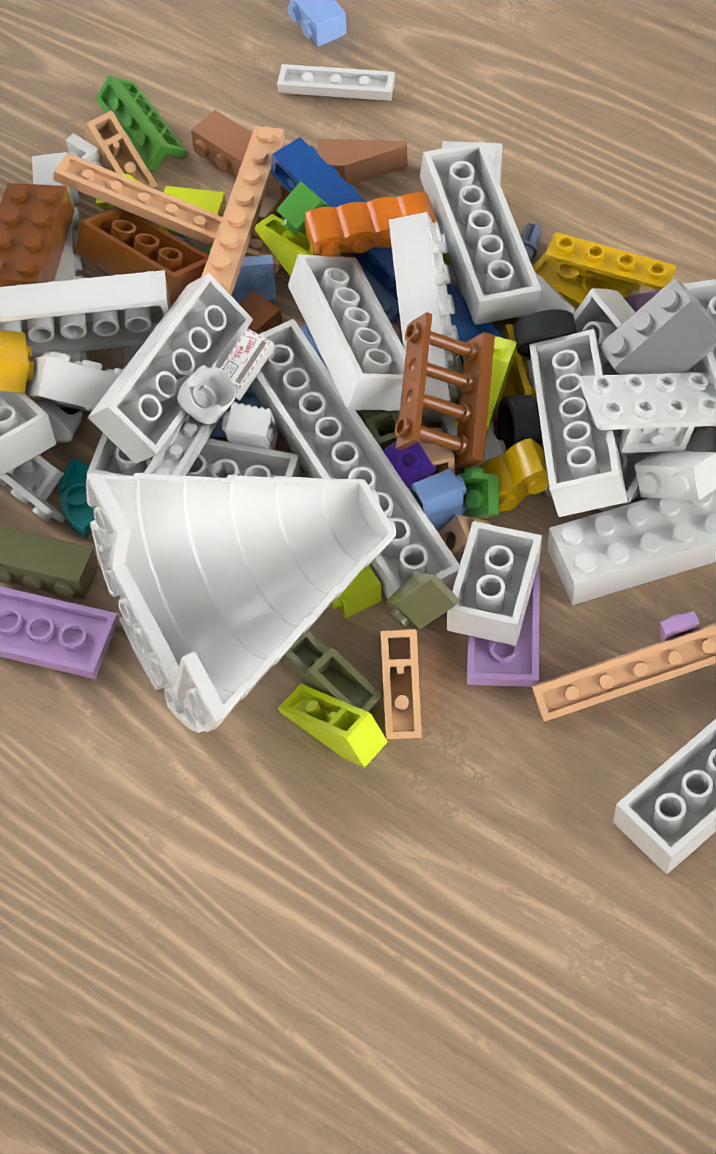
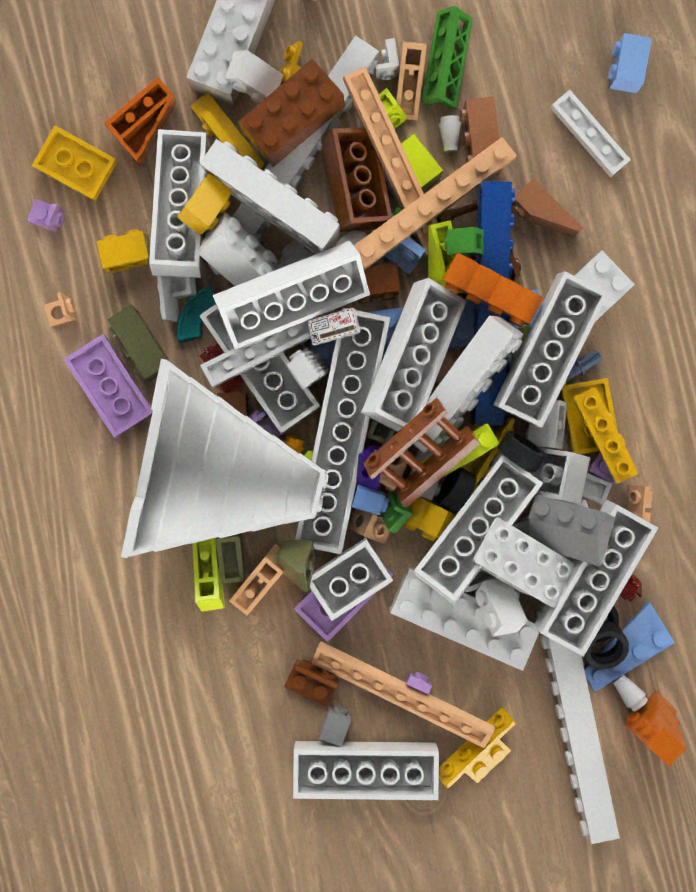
camera: 35 degrees right, 30 degrees up
(199, 168) = (450, 131): none -> white cone
(207, 394) = (292, 334): white hair -> none
(565, 740) = (312, 682): none -> dark orange bracket
(636, 756) = (335, 725): none -> light grey brick

